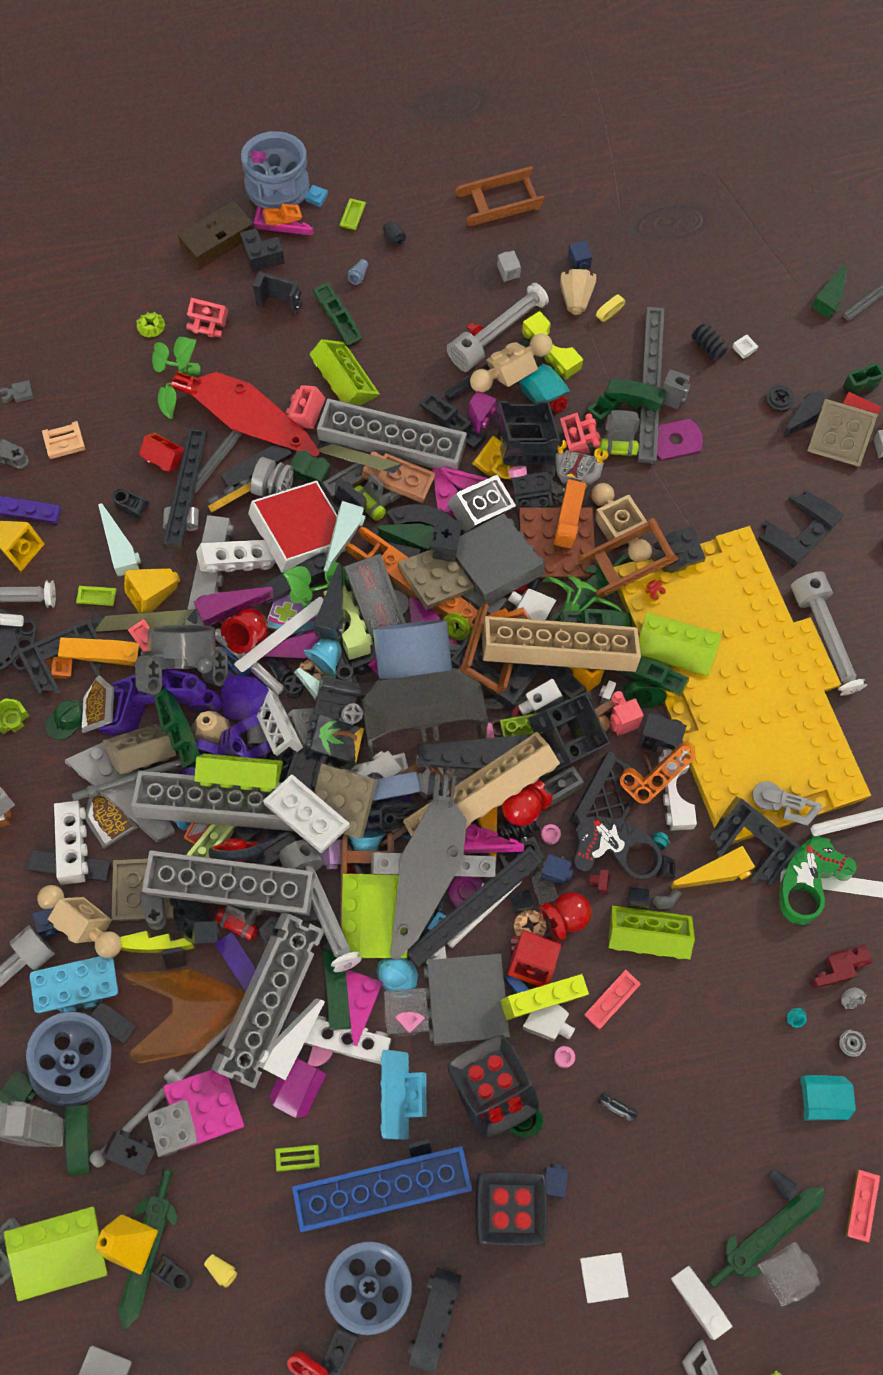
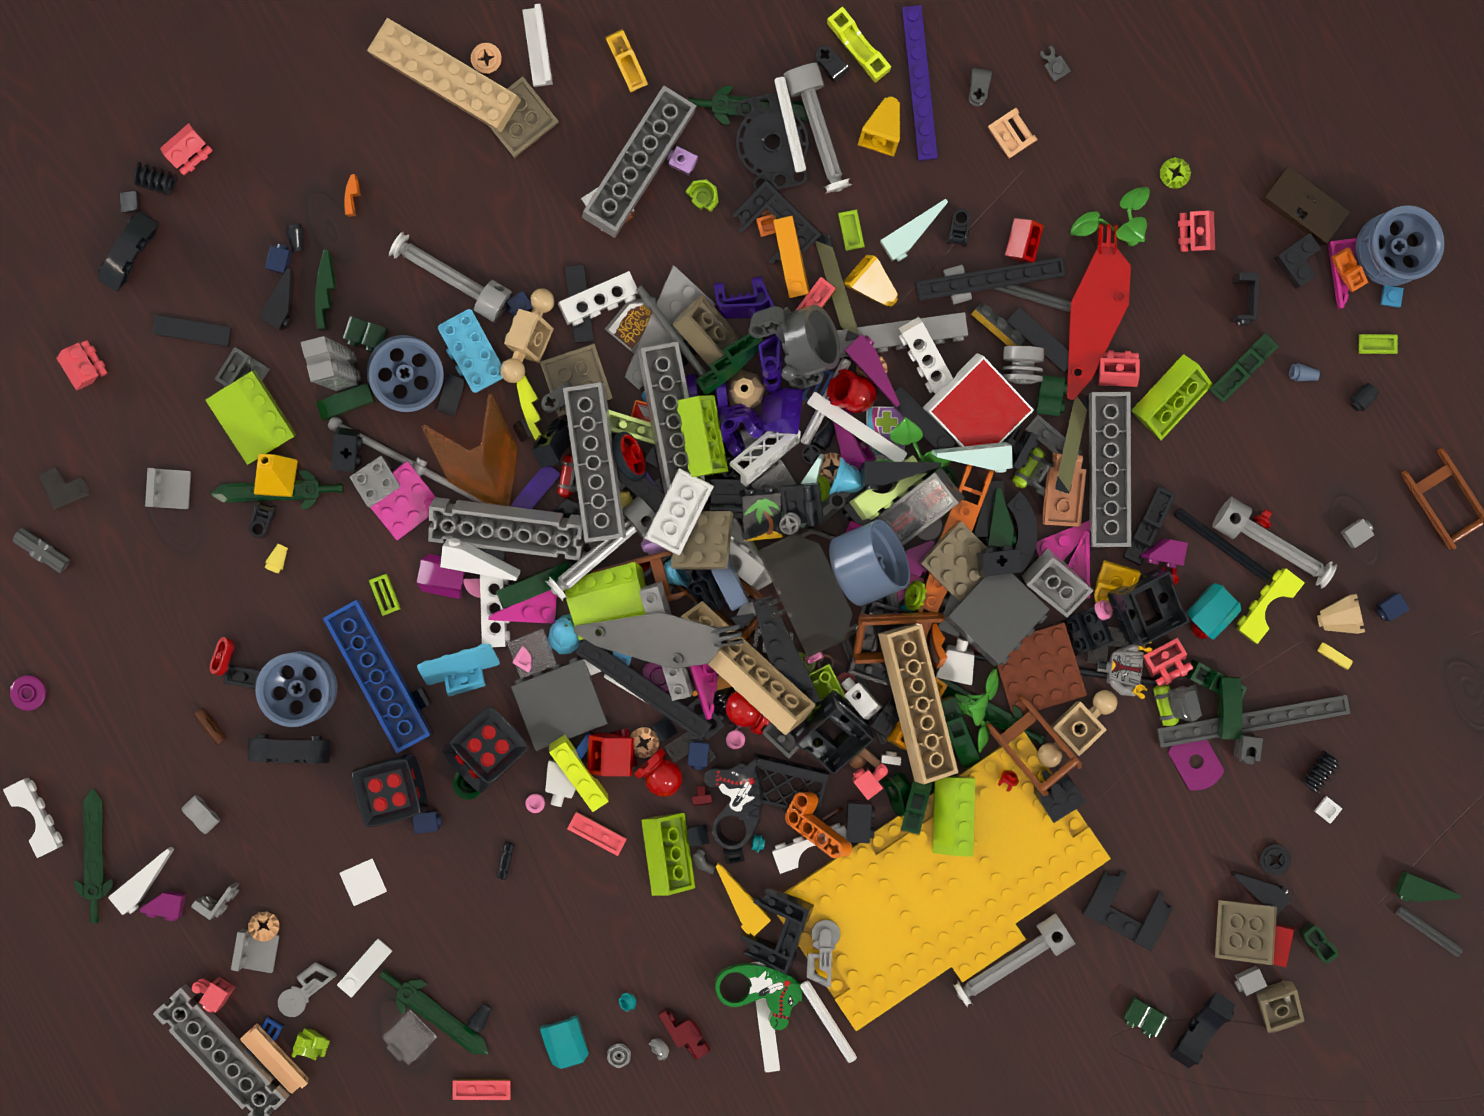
camera: 75 degrees right, 20 degrees up
(64, 719) = (718, 247): dark green piece -> none
(97, 705) = (737, 275): tile -> none
(258, 157) = (1394, 229): magenta plate -> none
(511, 363) = (1228, 570): tan brick -> none
(569, 514) = (1067, 675): orange beam -> none

